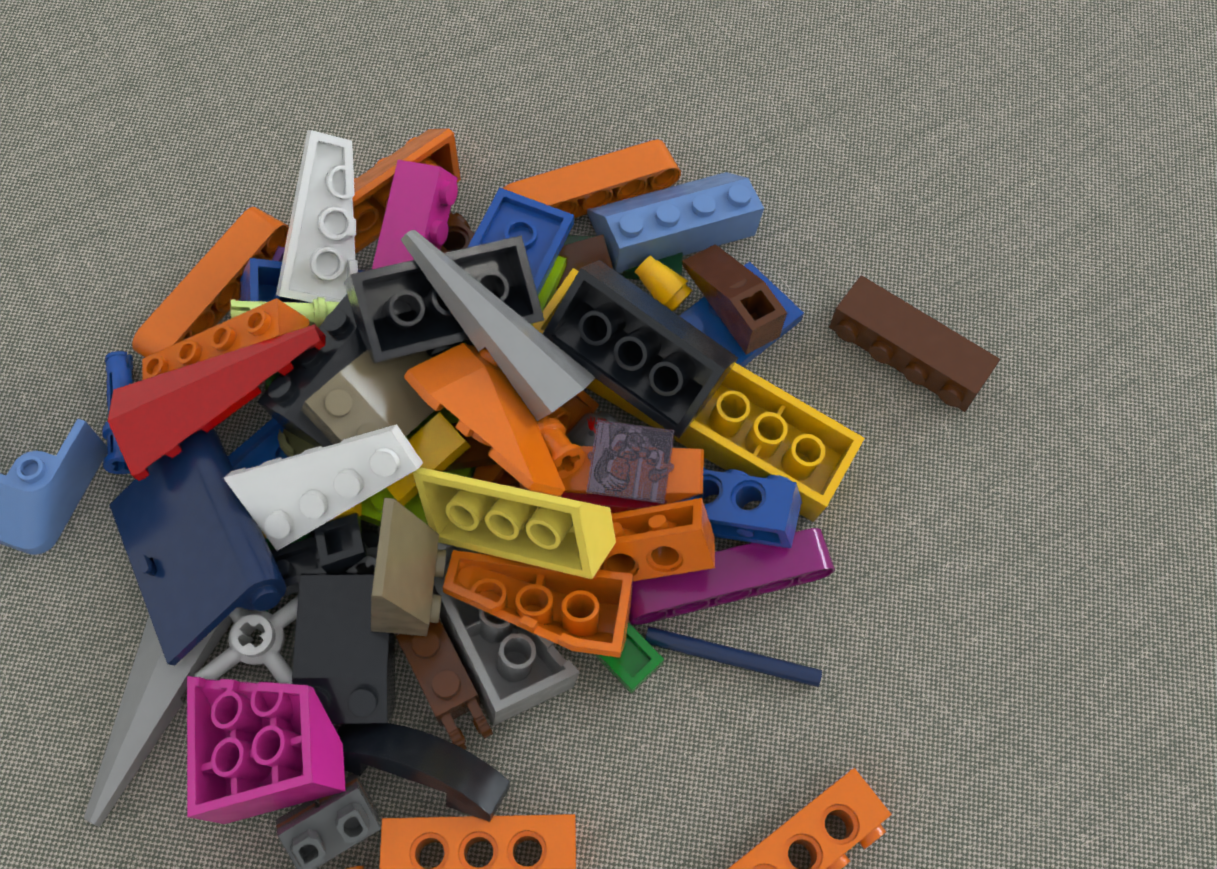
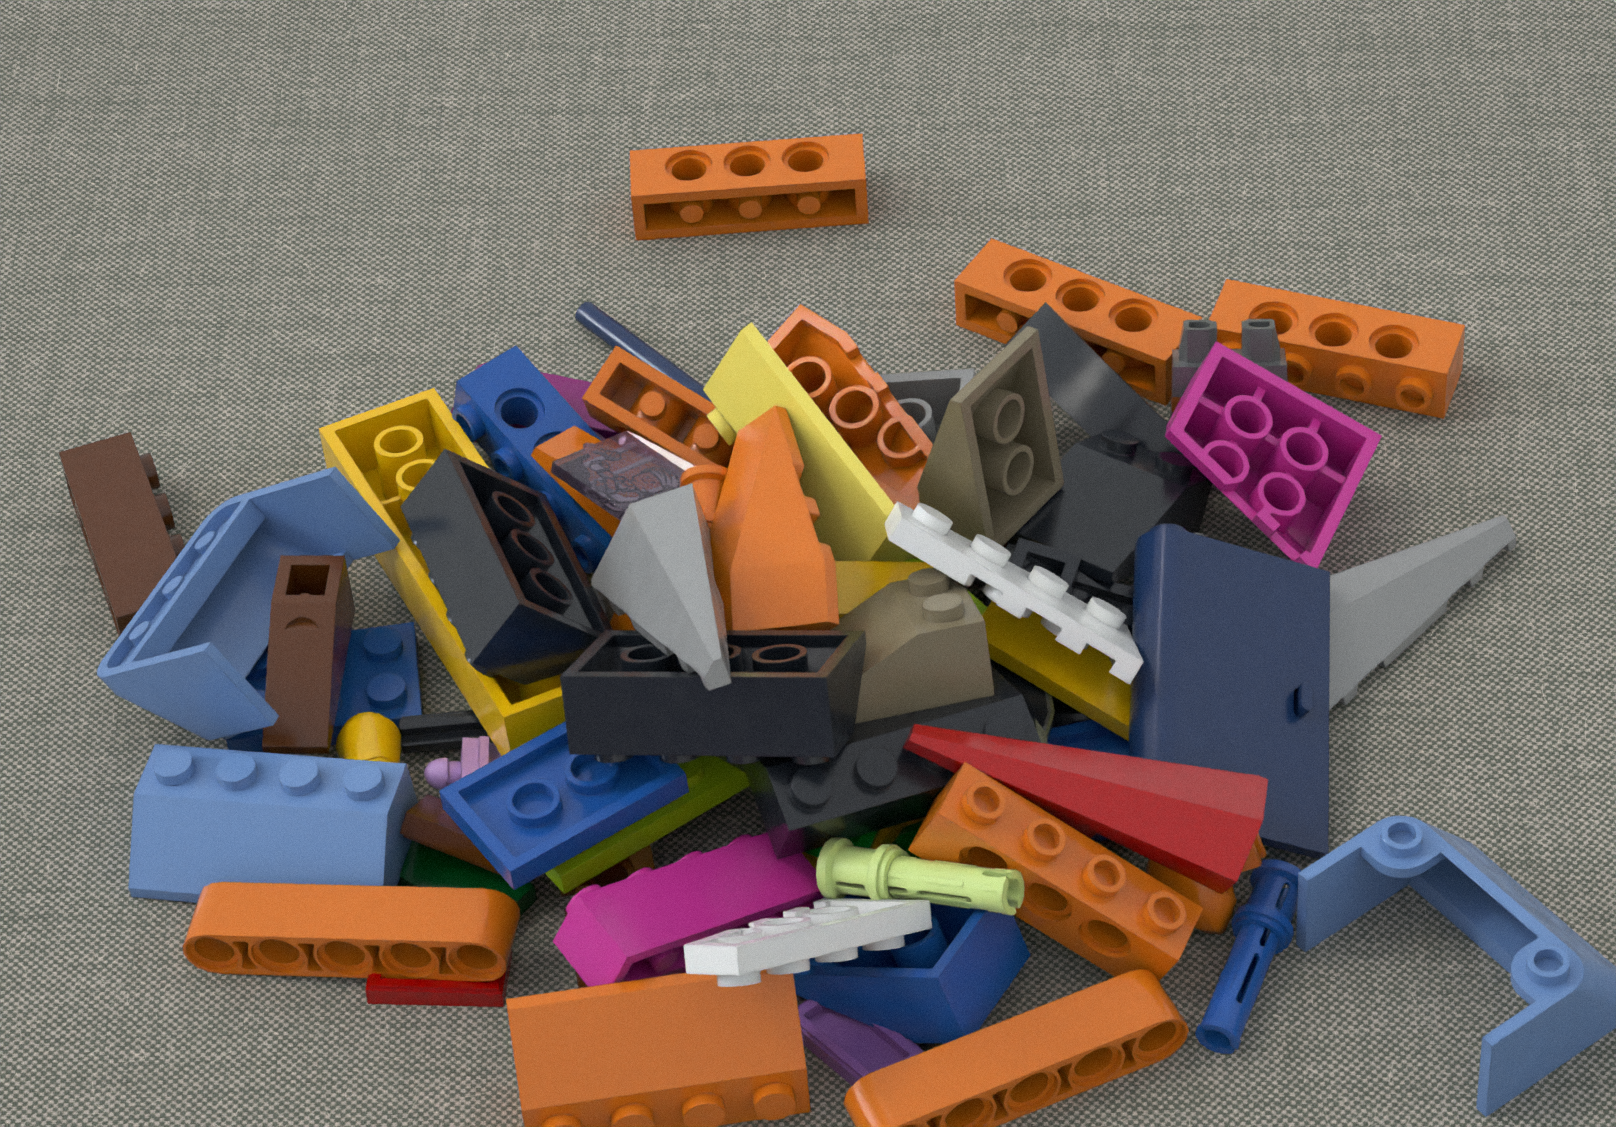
camera: 140 degrees left, 20 degrees down
(806, 275) = (212, 607): none -> medium blue windscreen

